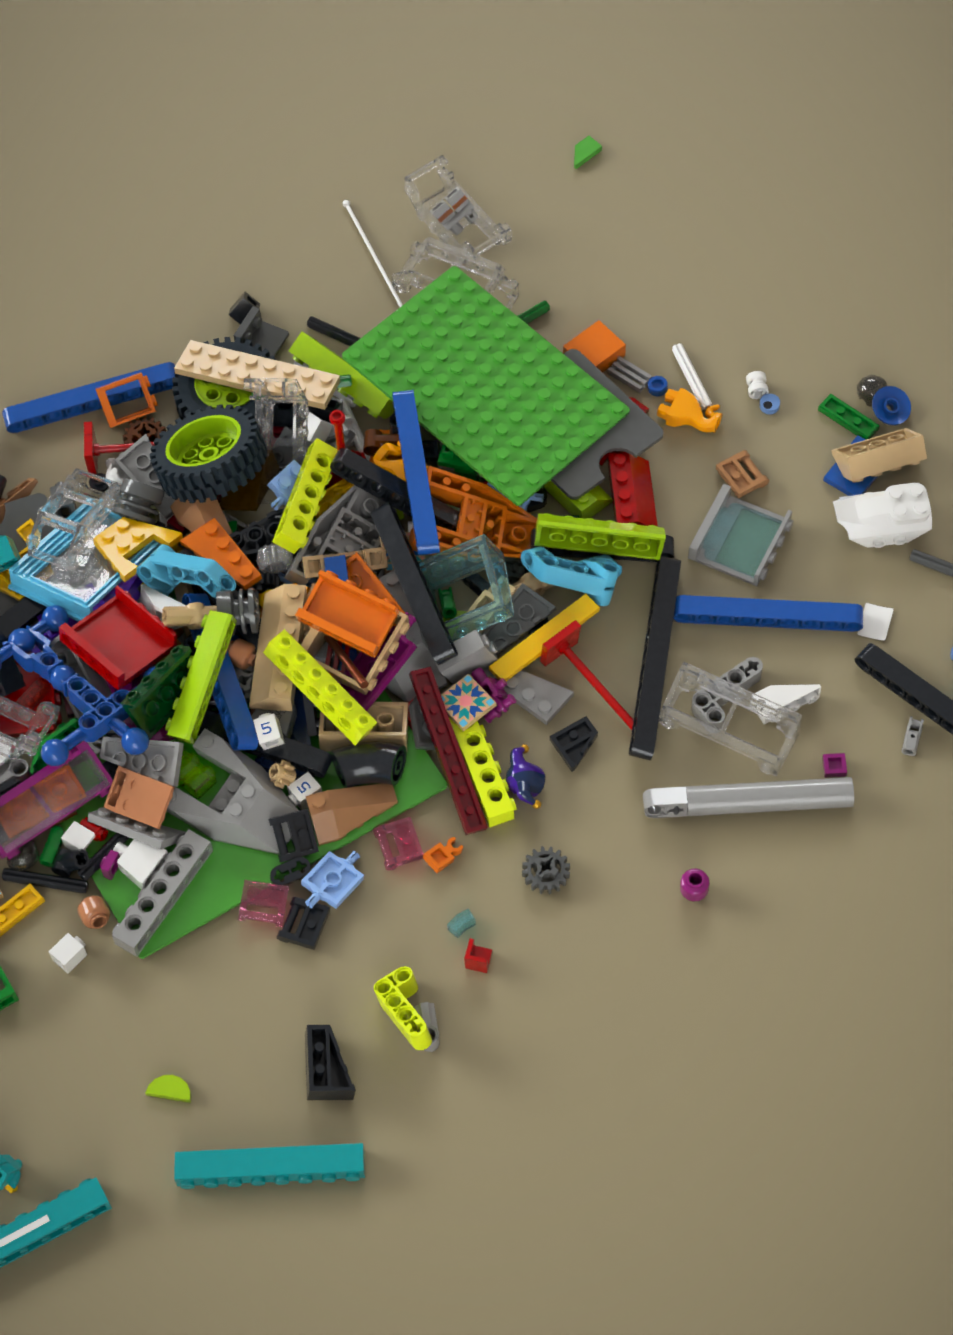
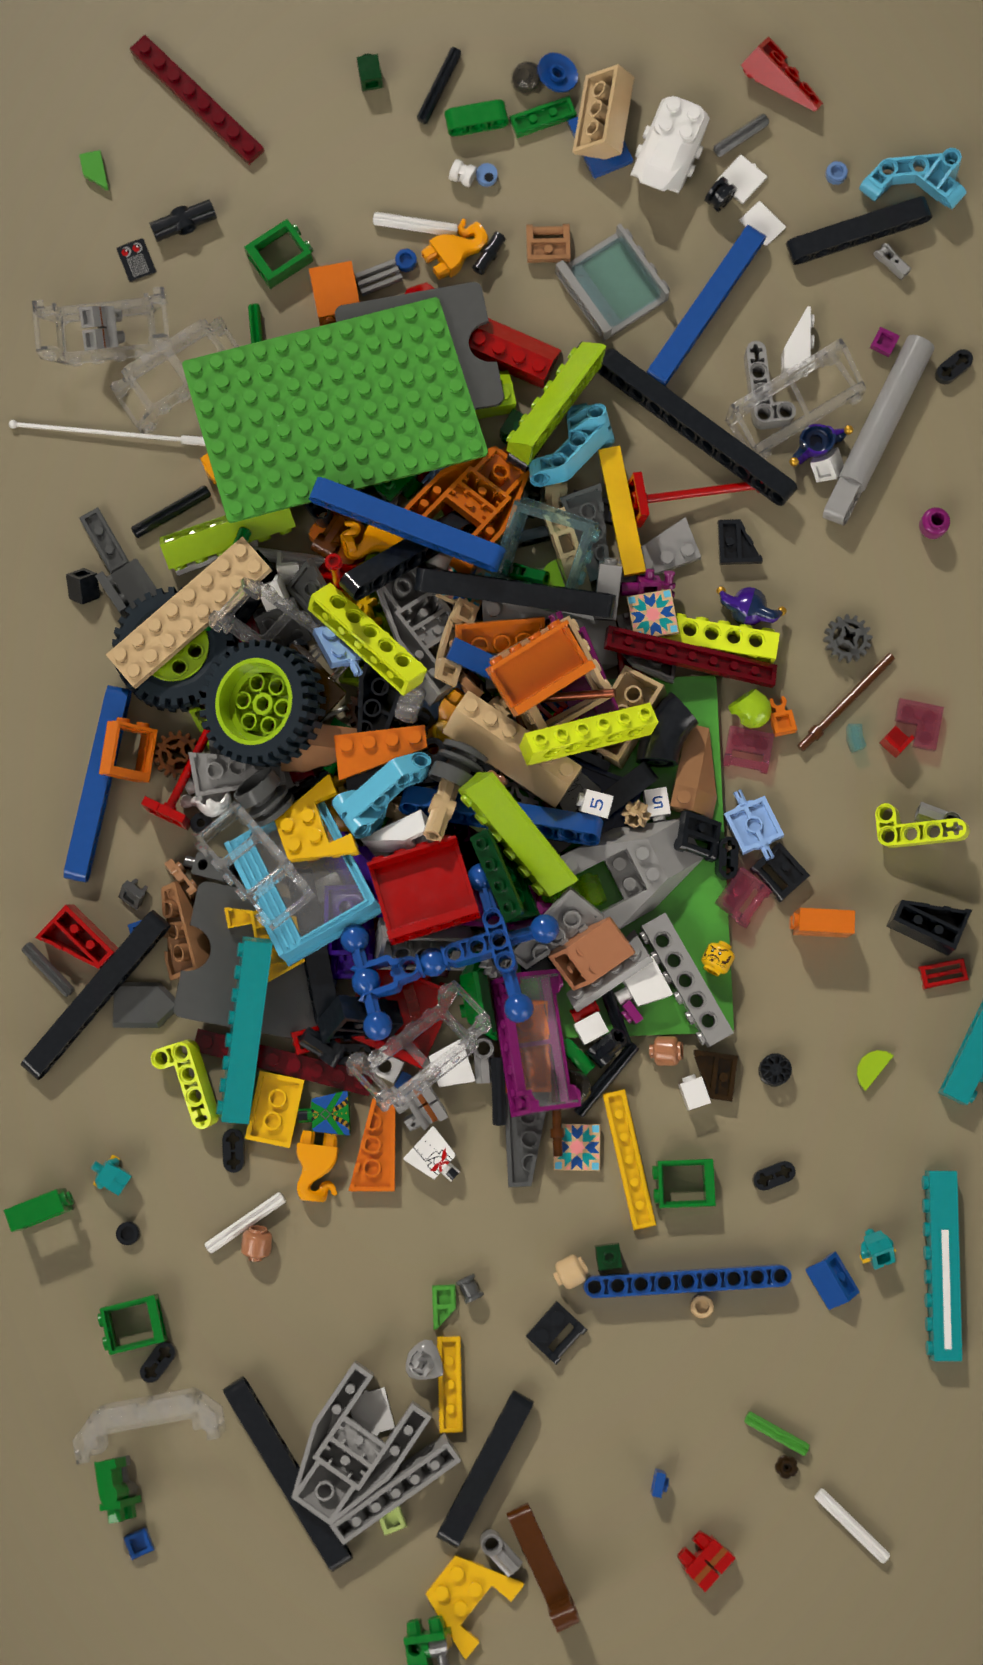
camera: 65 degrees left, 20 degrees up
(14, 465) = (132, 894): none -> dark grey tile
(32, 1052) = (771, 1170): none -> black beam
(45, 482) = (178, 873): none -> medium nougat wing
(95, 964) = (717, 1073): none -> dark brown wing
(123, 1008) = (775, 1070): none -> black wheel
(195, 906) = (717, 958): none -> yellow head
(274, 974) = (823, 922): none -> orange brick
(291, 305) = (104, 540): none -> dark grey tile
(301, 1120) = (924, 977): none -> red tile
(433, 824) = (752, 709): none -> lime helmet
(447, 889) = (816, 732): none -> reddish brown bar
(513, 971) = (926, 719): none -> clear pink plate
(532, 214) = (136, 259): none -> black sticker
(583, 224) = (183, 220): none -> black piece
(591, 310) = (287, 269): none -> green window
(688, 186) = (197, 99): none -> dark red plate
(691, 774) = (828, 466): none -> white panel
(703, 437) = (489, 253): none -> black pin
(705, 755) = (818, 441): none -> dark blue piece
(794, 281) = (369, 72): none -> dark green brick
(811, 371) = (476, 117): none -> green beam
(820, 333) = (439, 85): none -> black axle
(852, 833) = (956, 370): none -> black beam
(873, 573) = (720, 194): none -> black wheel
(902, 586) = (745, 177): none -> white piece

